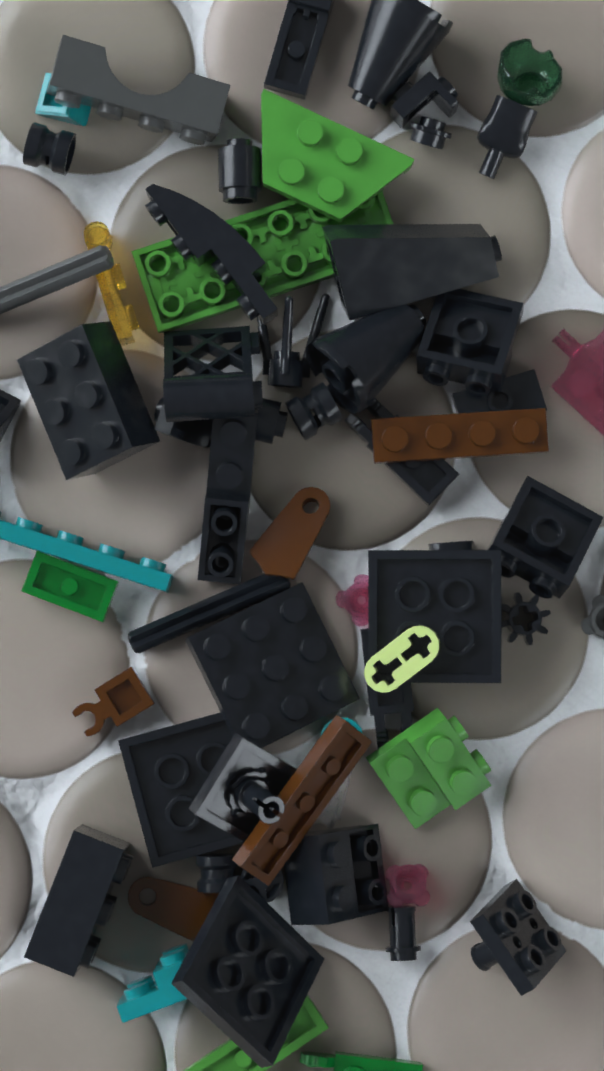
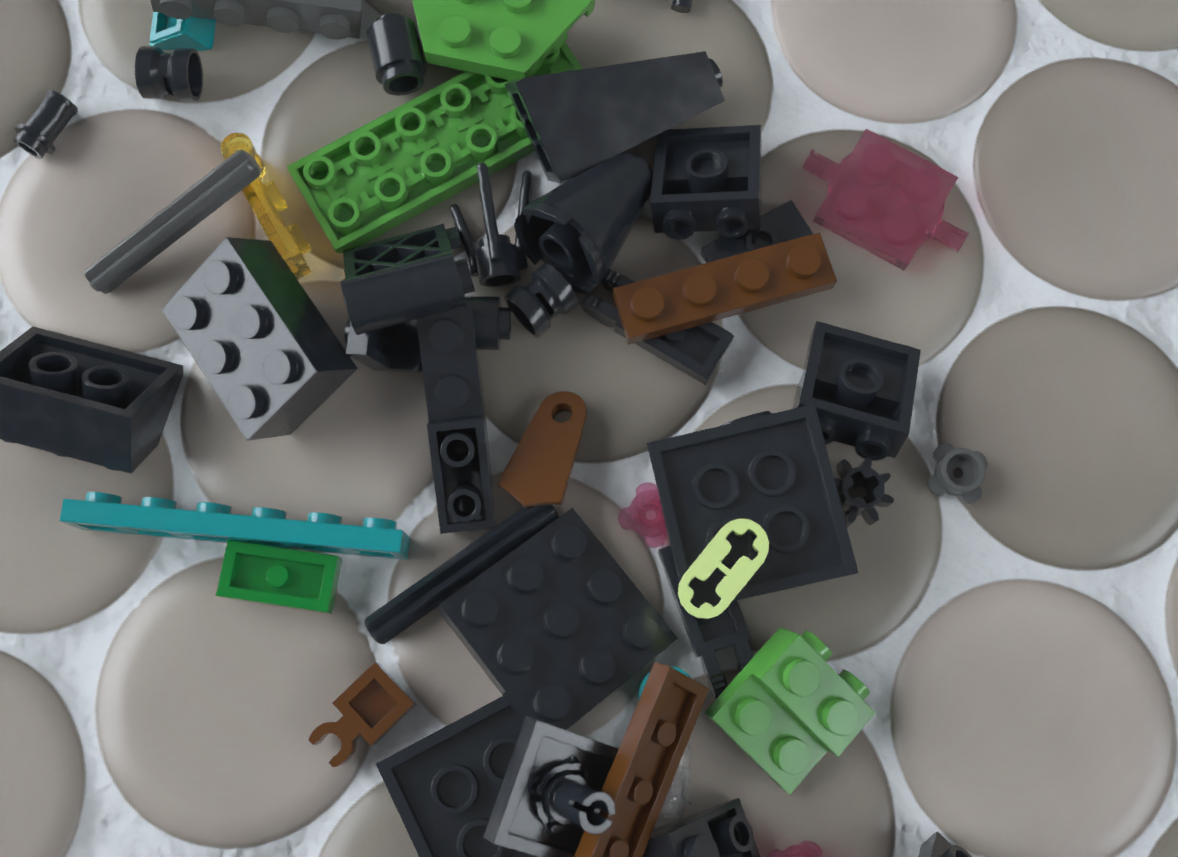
camera: 10 degrees left, 10 degrees down
(206, 235) = (377, 123): black slope -> none

